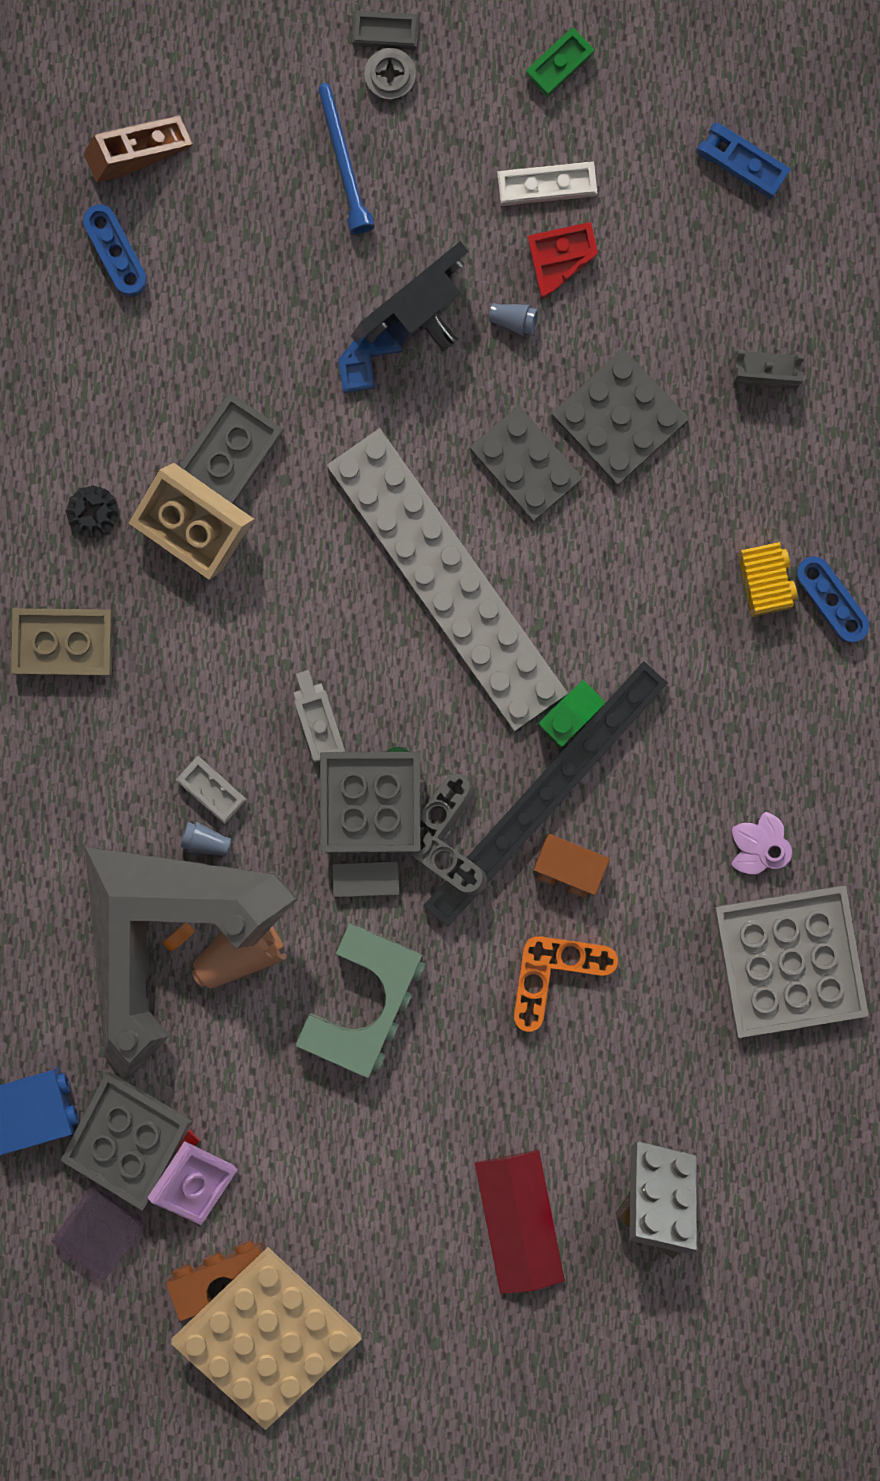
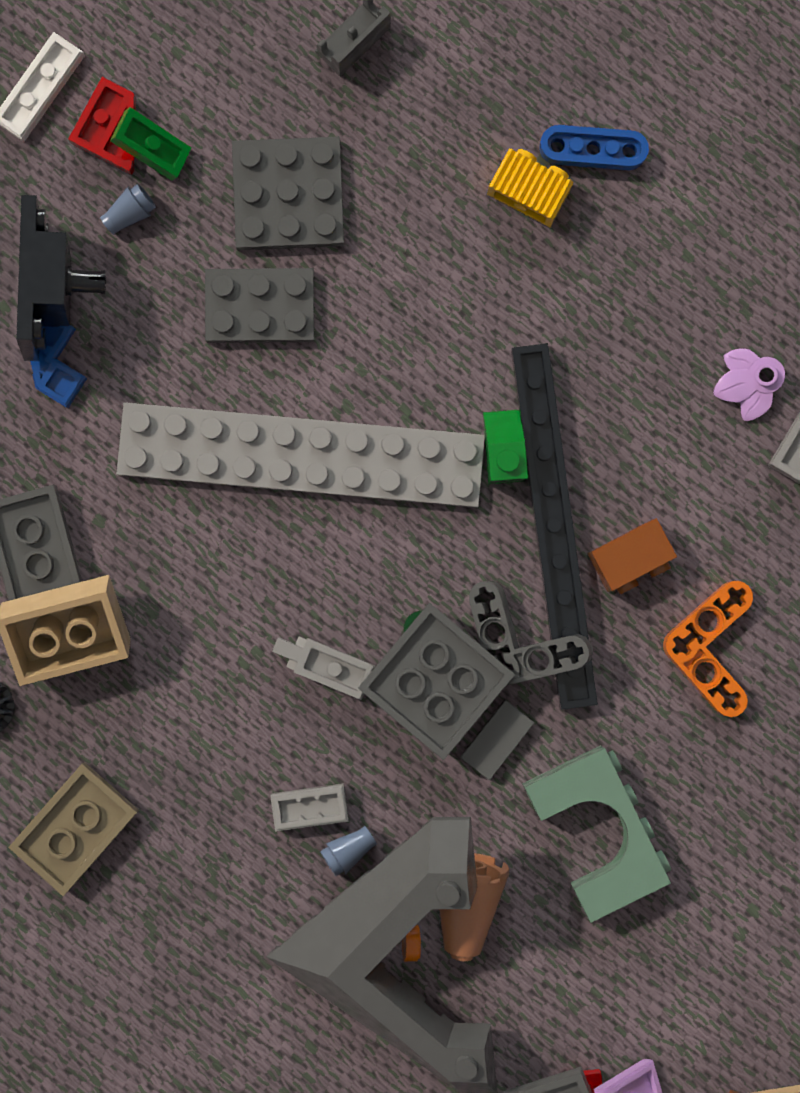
camera: 50 degrees left, 0 degrees up
(572, 295) = (150, 144): none -> green plate

